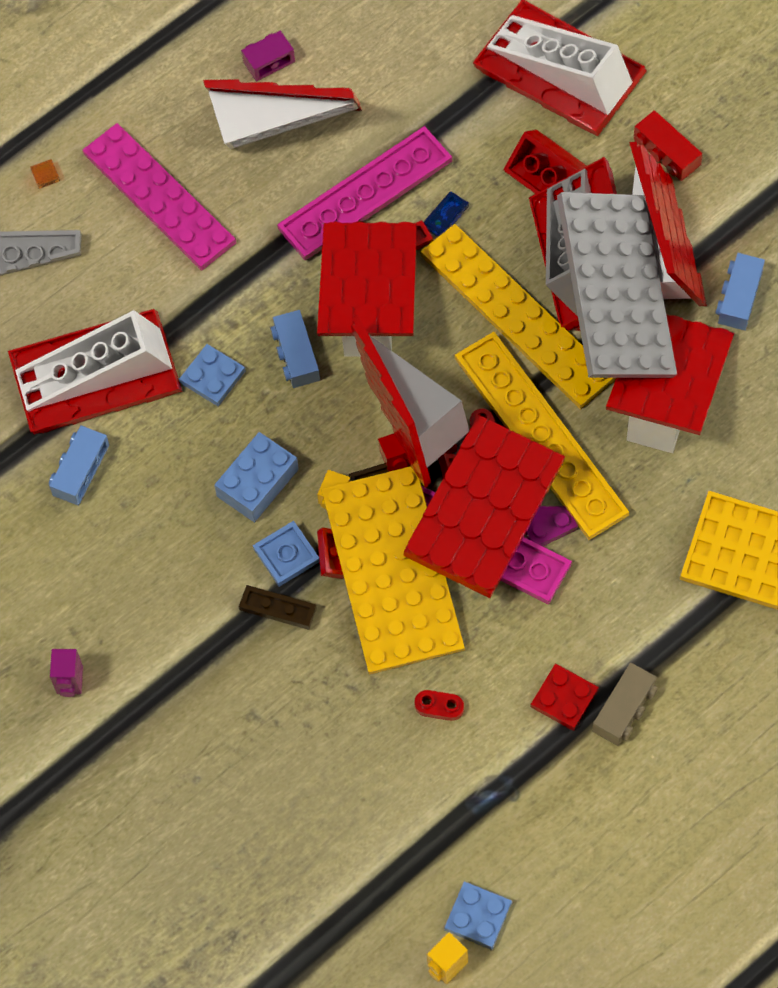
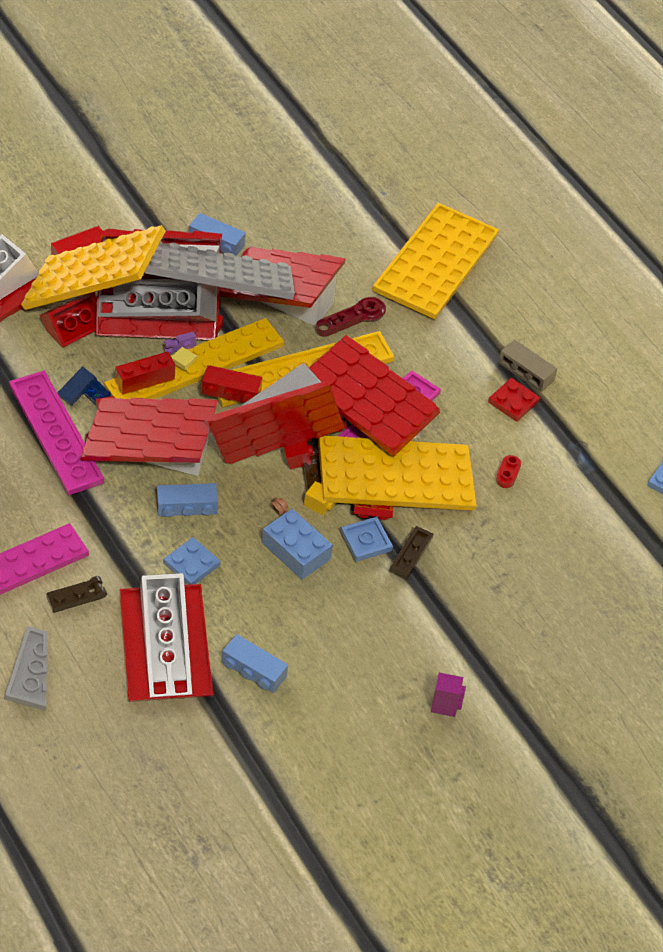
camera: 90 degrees left, 15 degrees down
(140, 269) = (76, 594): none -> dark brown plate
(312, 449) = (279, 505): none -> nougat plate
(437, 196) = (77, 386): none -> dark blue tile
(466, 257) = (145, 372): none -> red brick
(473, 355) = (230, 384): none -> red brick
(509, 296) = (184, 358): none -> light yellow tile
(541, 293) = (185, 340): none -> medium lavender plate
(585, 152) = (94, 267): none -> yellow plate
(653, 479) = (352, 316): none -> dark red beam

